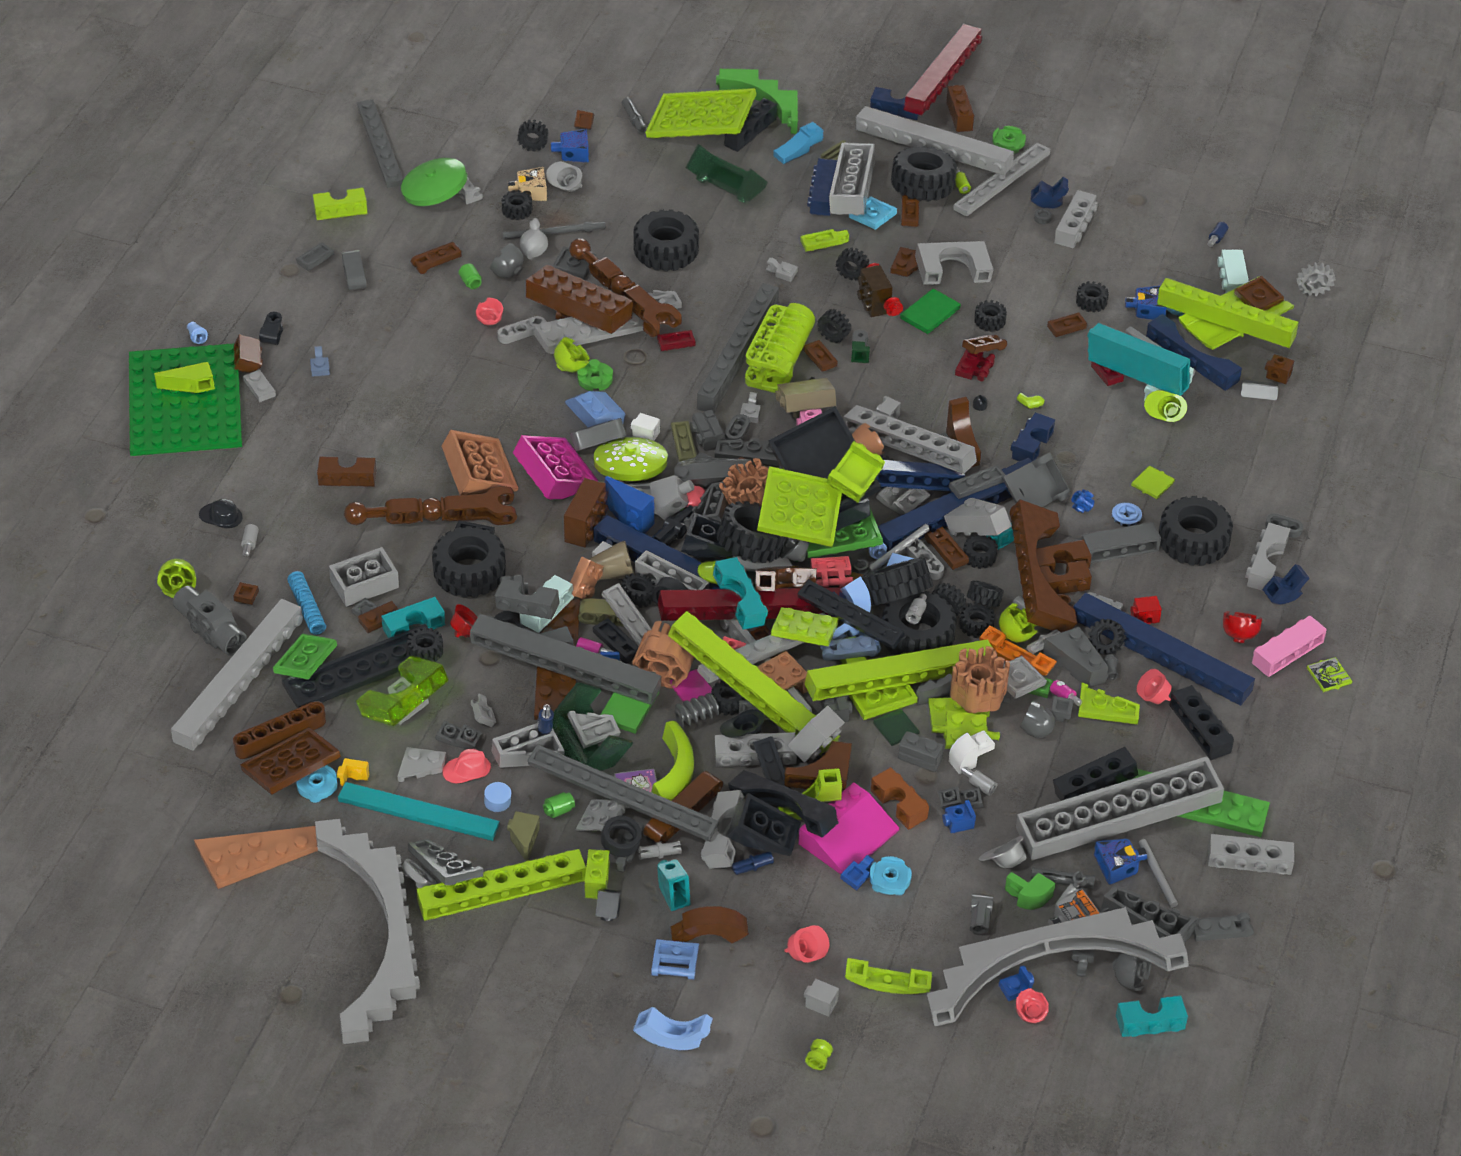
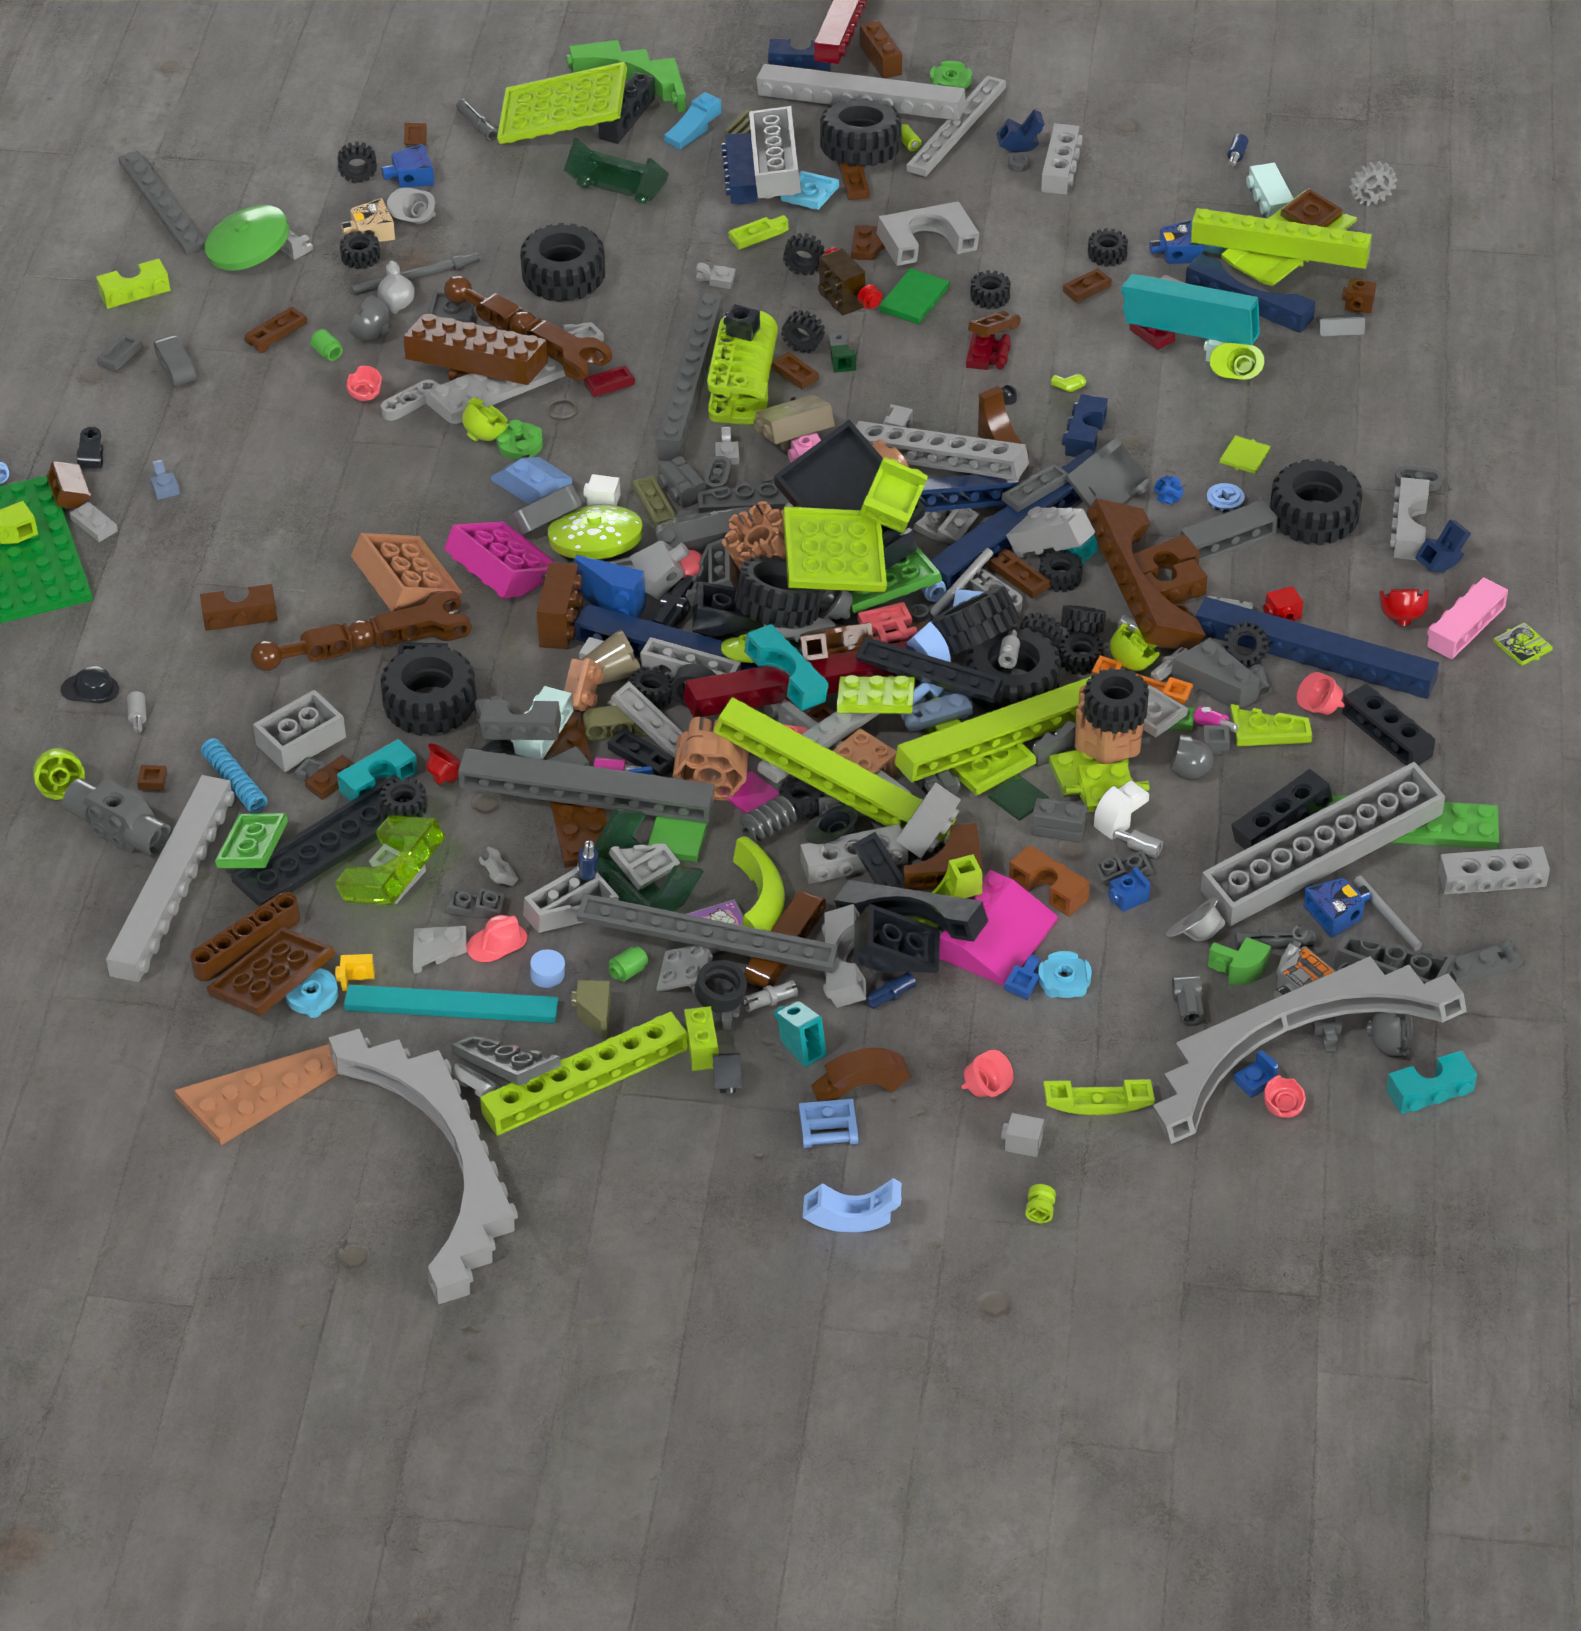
camera: 10 degrees left, 0 degrees up
(784, 312) = (742, 322): none -> black brick
(983, 666) = (1116, 700): none -> black tyre

